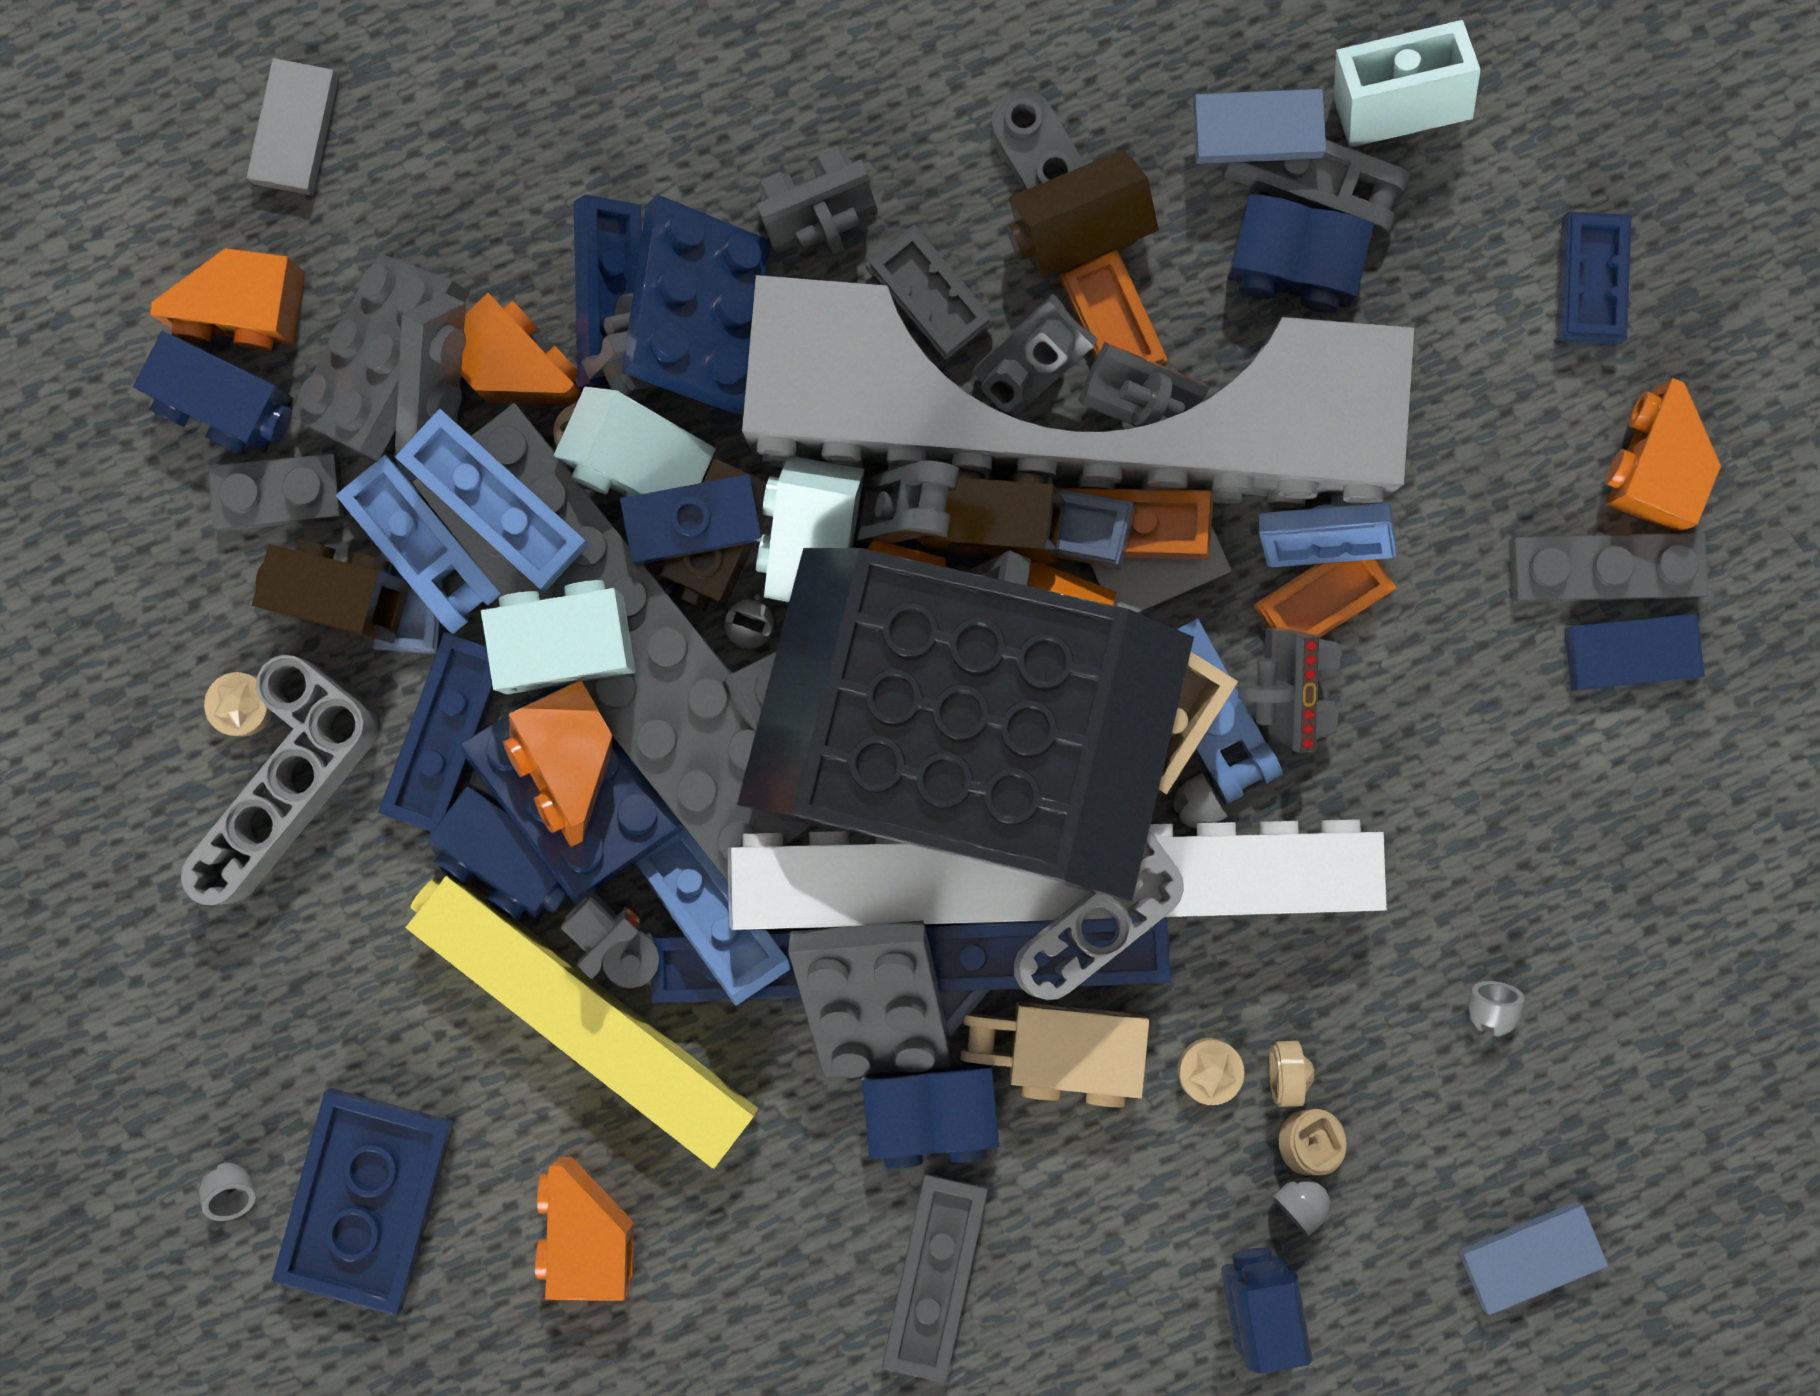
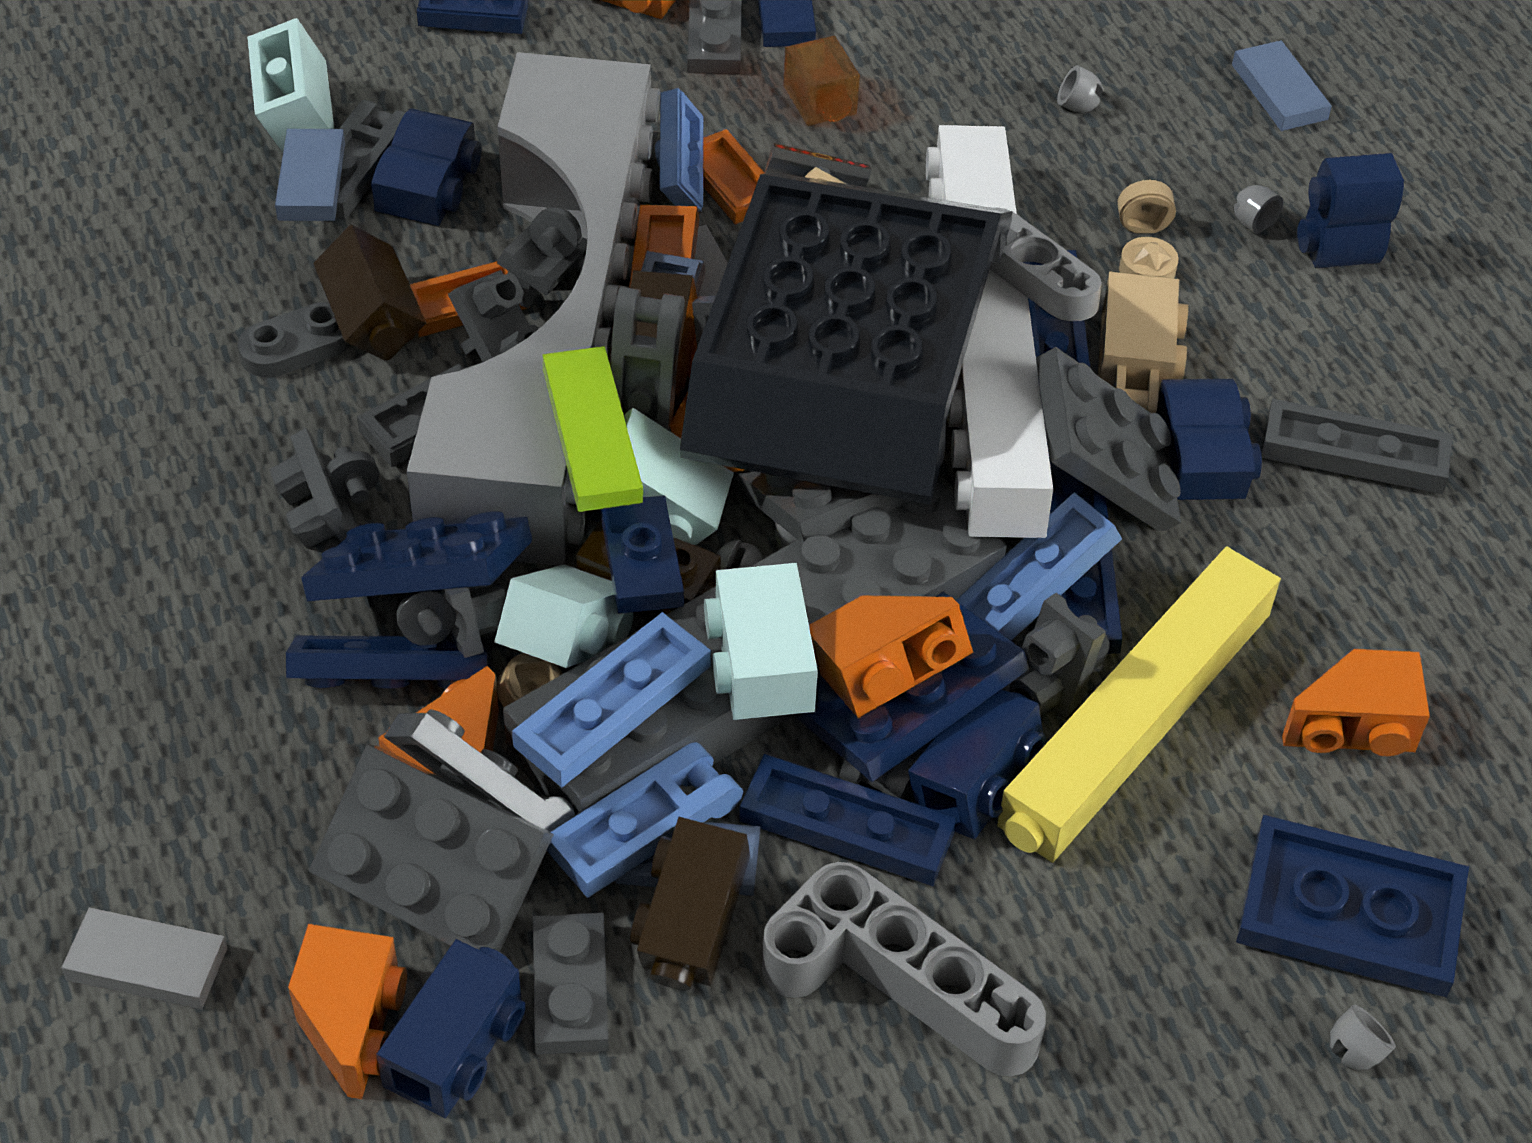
camera: 95 degrees left, 35 degrees down
(234, 705) = (812, 1024): tan tile -> none
(810, 454) = (592, 429): none -> lime tile
(1312, 1142) = (1203, 199): tan tile -> none
(1478, 697) = (821, 80): none -> clear orange brick

